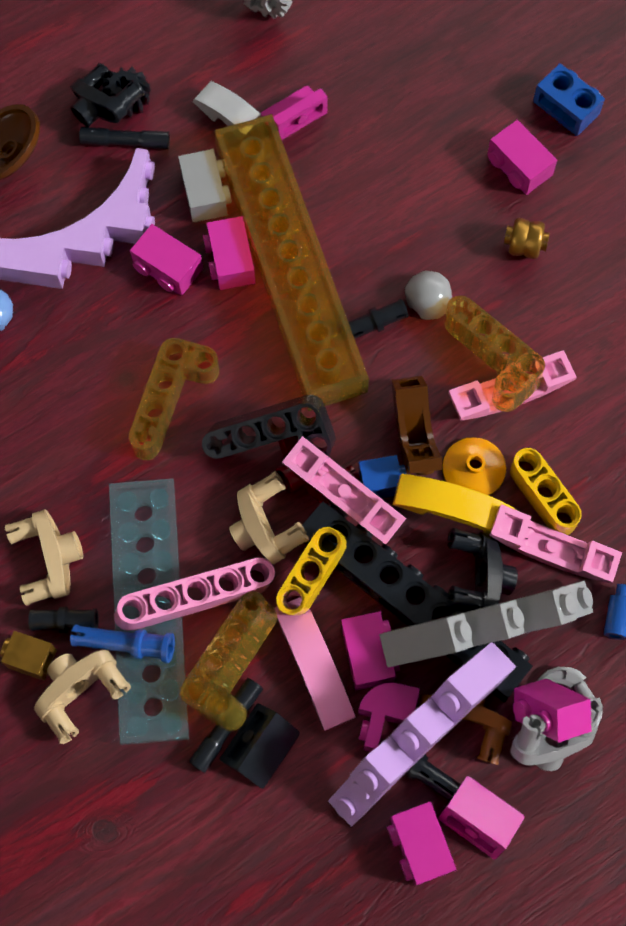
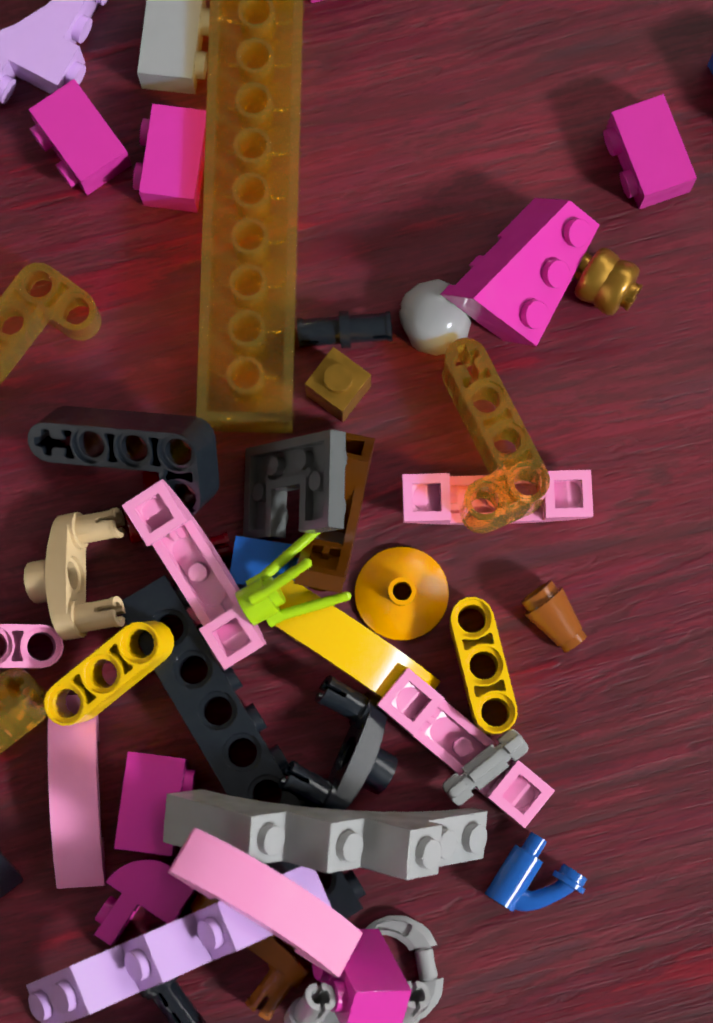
camera: 20 degrees right, 10 degrees up
(386, 352) = (338, 384): none -> pearl gold brick
(393, 486) = (263, 594): none -> lime plant
(394, 397) = (306, 463): none -> dark grey plate
(476, 666) = (267, 899): none -> bright pink slope
(477, 247) = (526, 271): none -> dark pink wedge
(572, 552) = (485, 767): none -> light grey axle
(576, 446) = (554, 616): none -> dark orange cone

